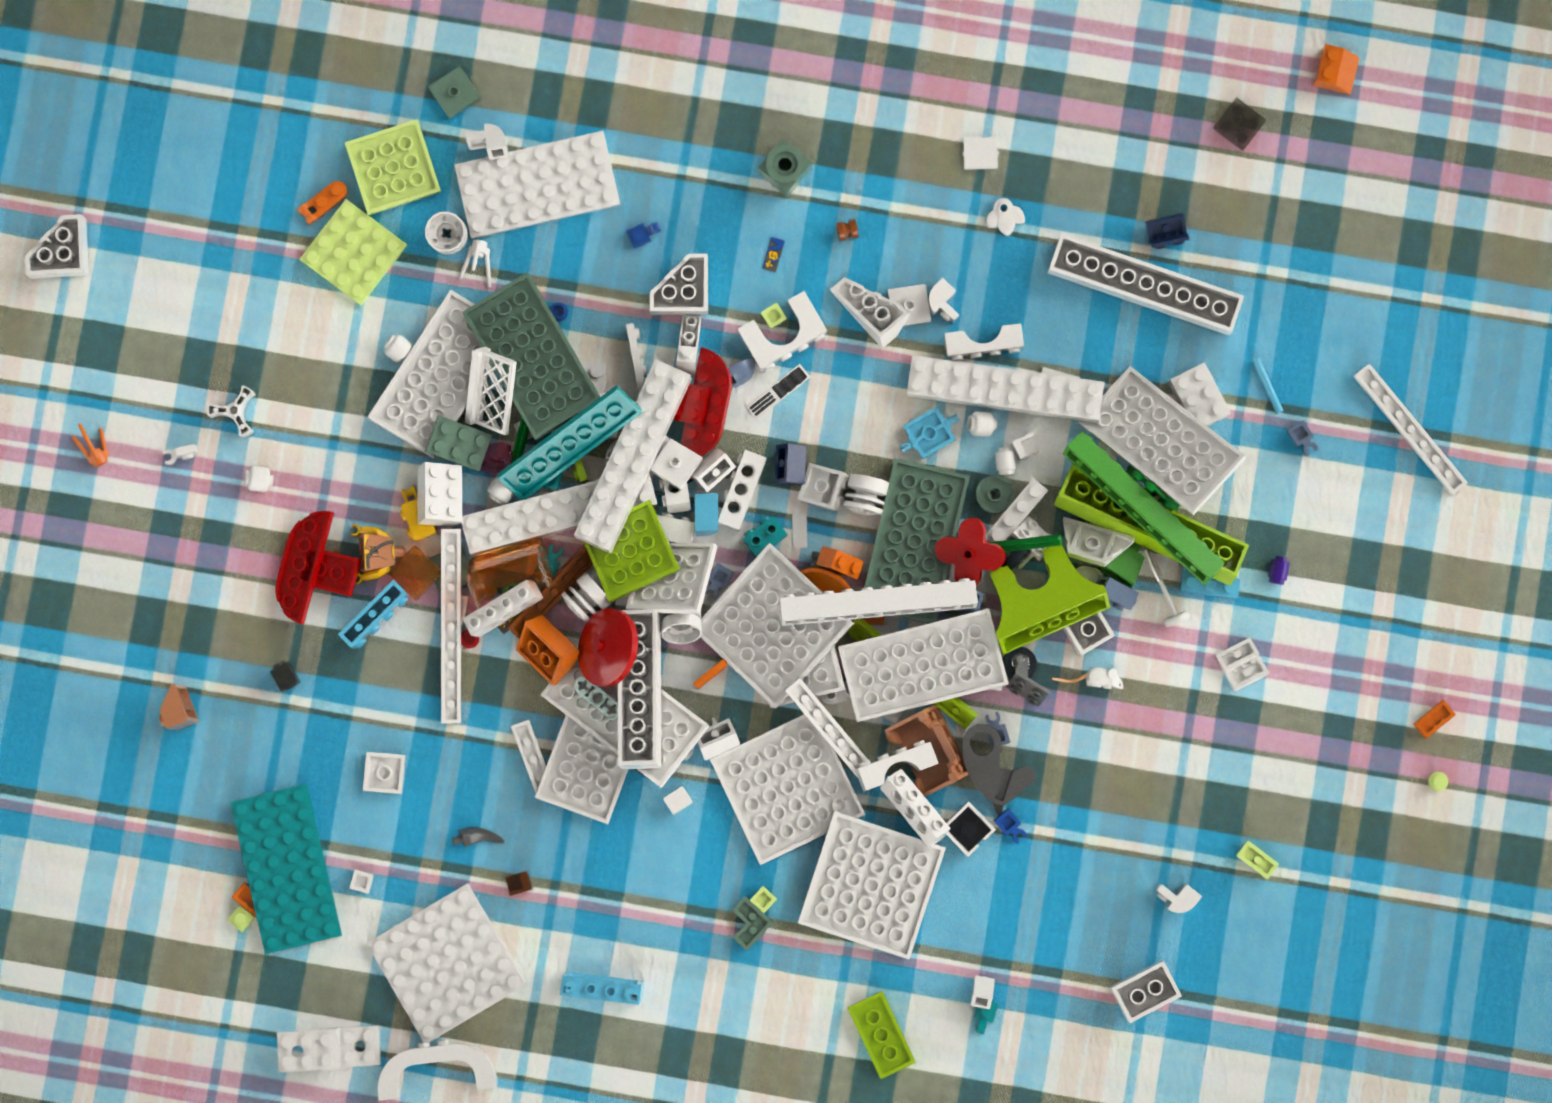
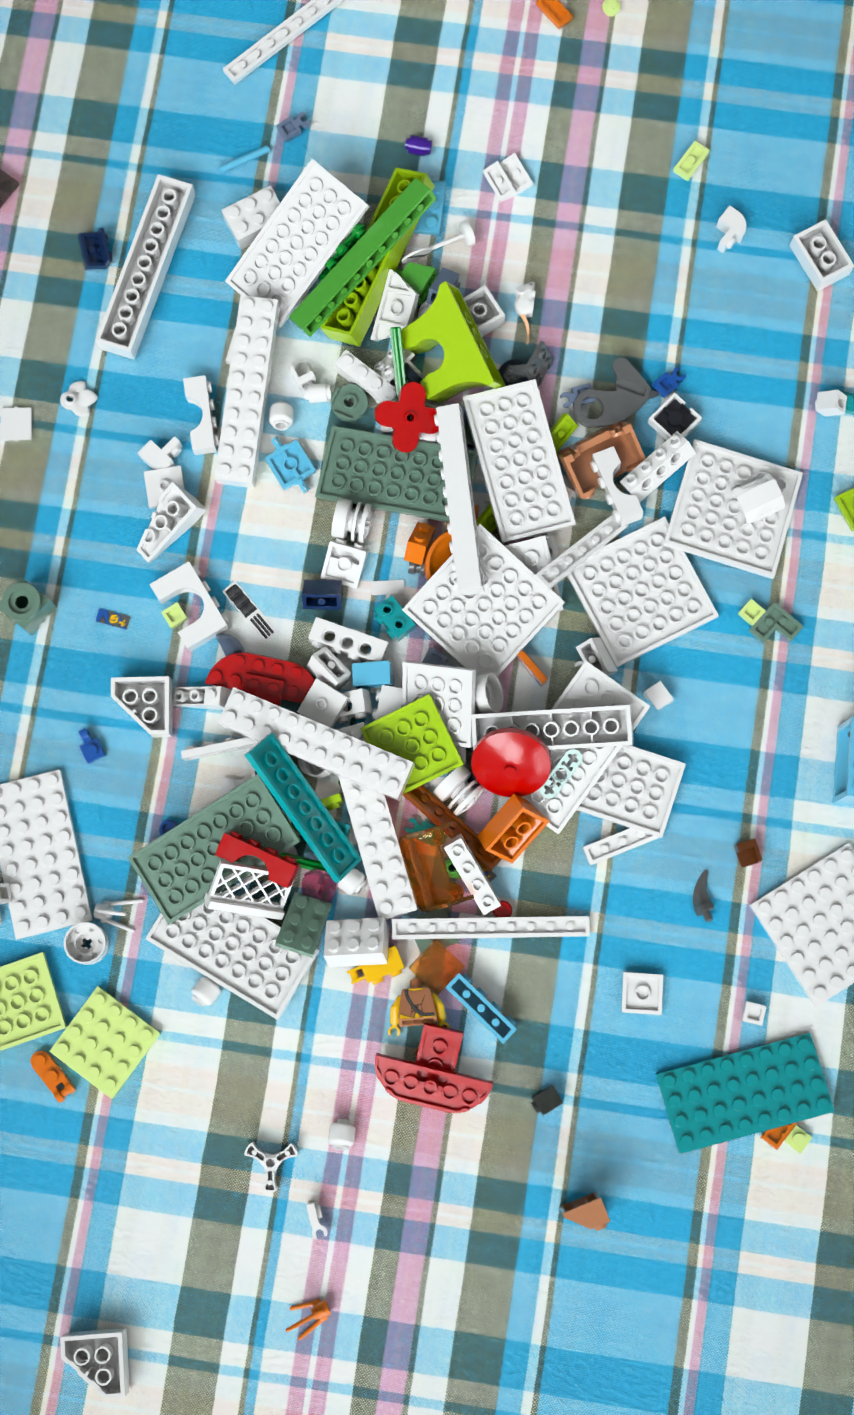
camera: 85 degrees left, 5 degrees down
(509, 419) = (280, 868): none -> red arch
(847, 230) = (89, 546): dark orange wheel -> none
(879, 910) = (759, 498): none -> white slope

